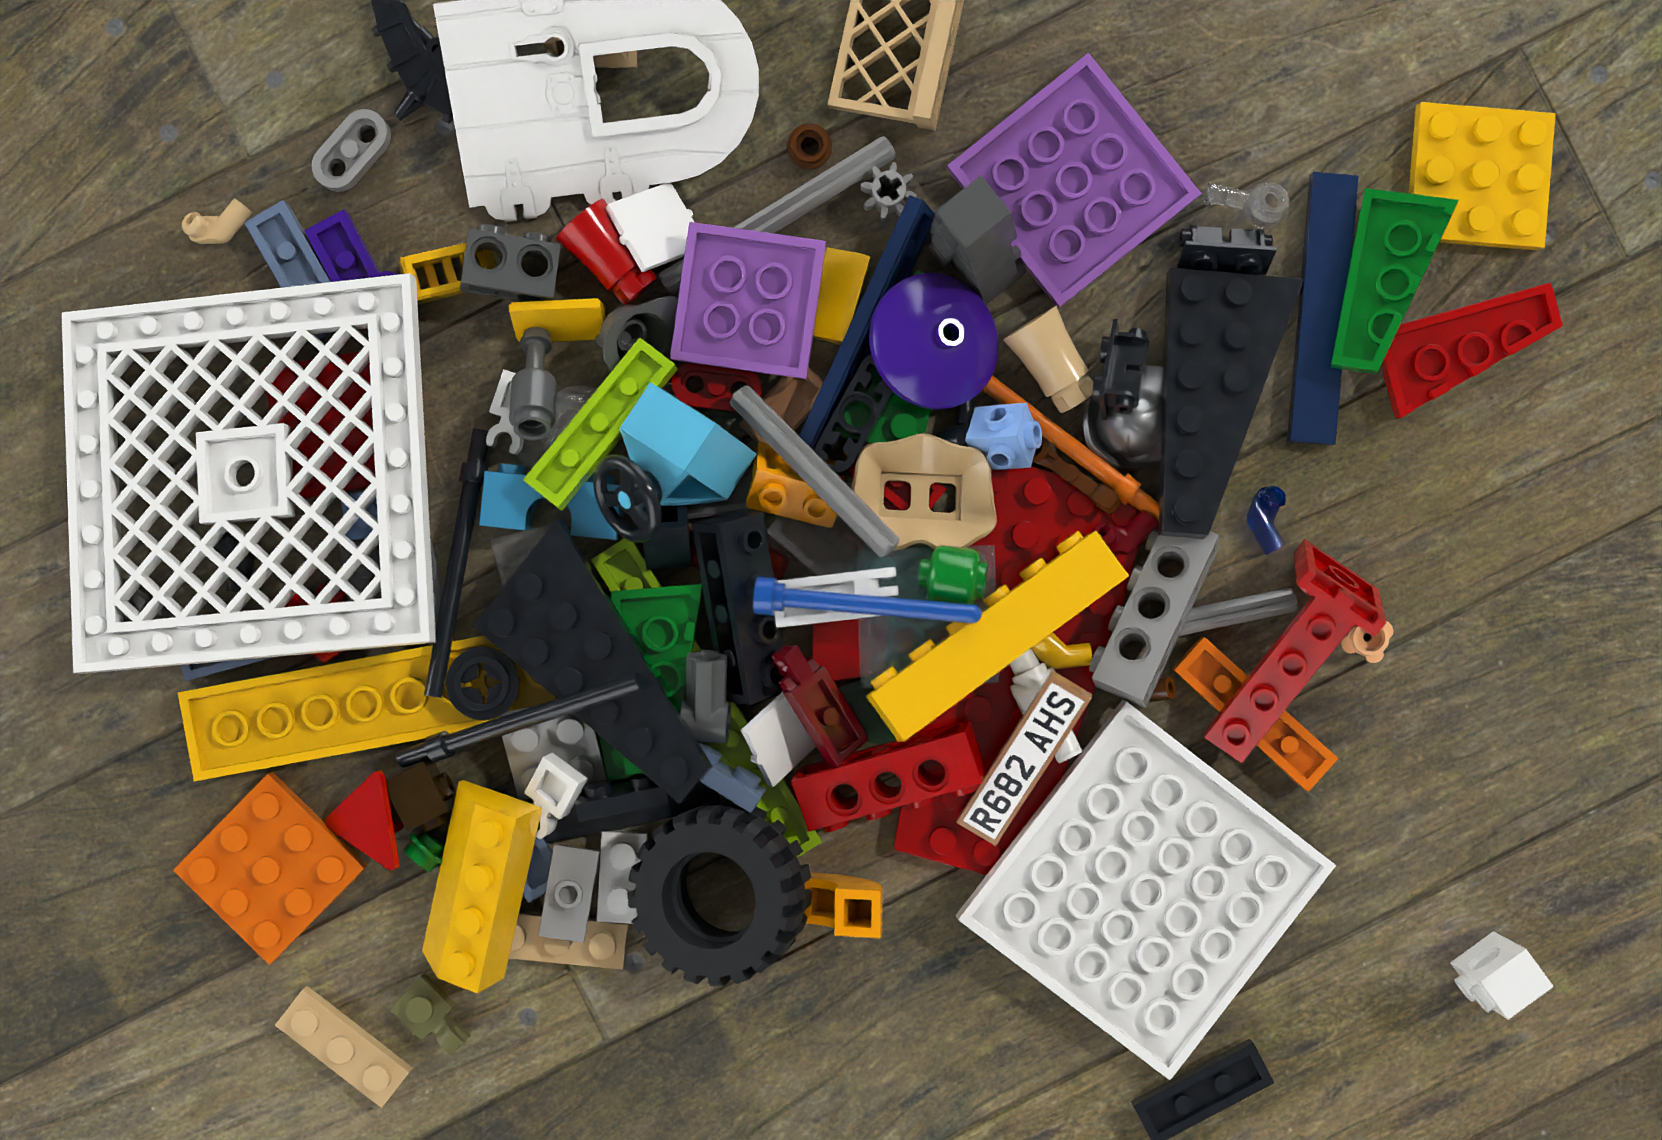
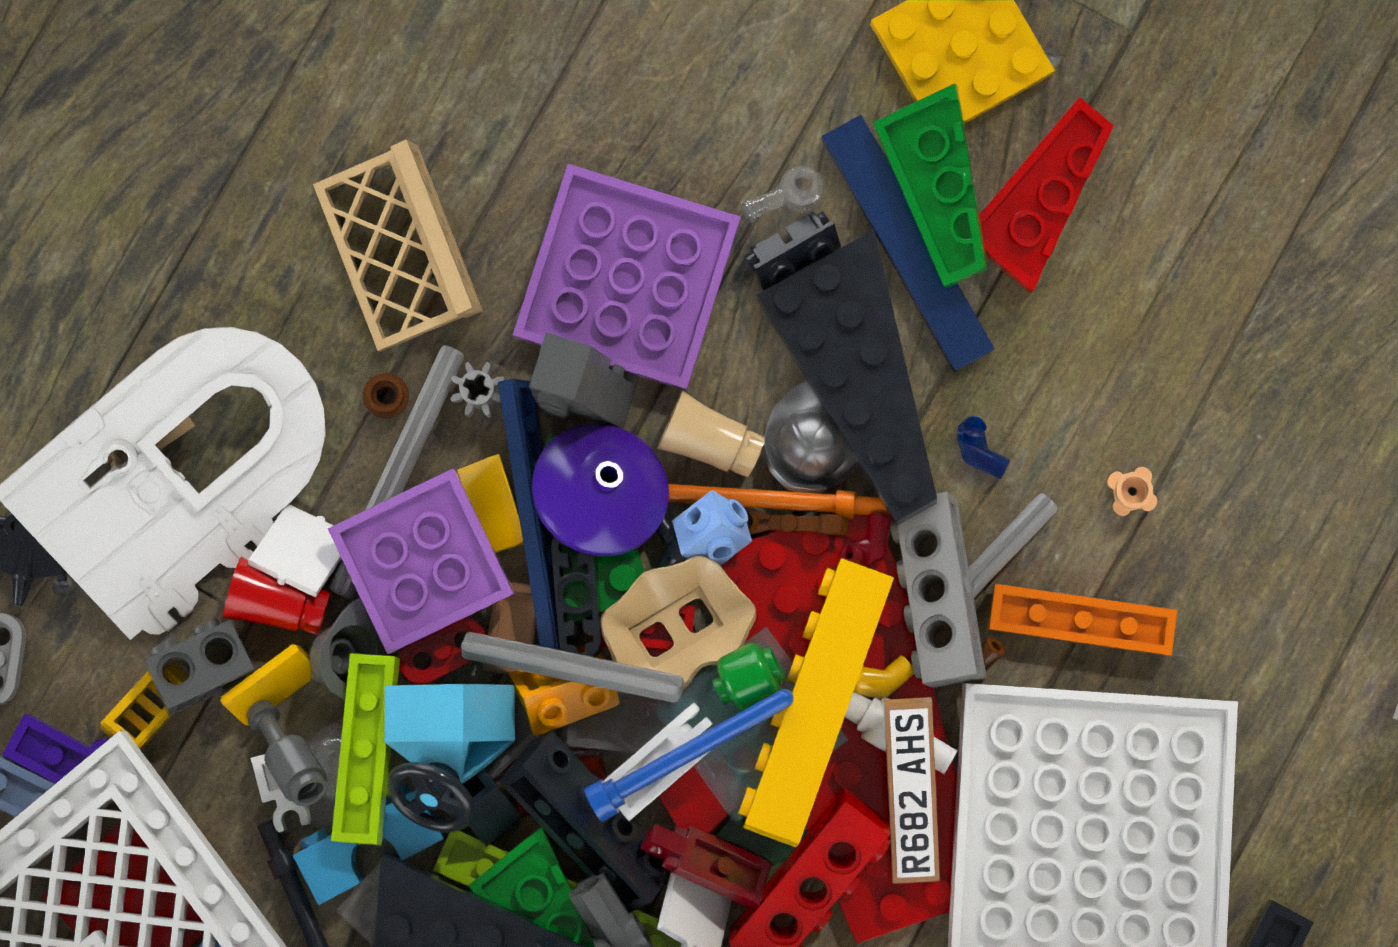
camera: 35 degrees left, 5 degrees down
(1116, 386) = (776, 424): black hinge -> none
(1335, 606) = (1081, 479): red bracket -> none

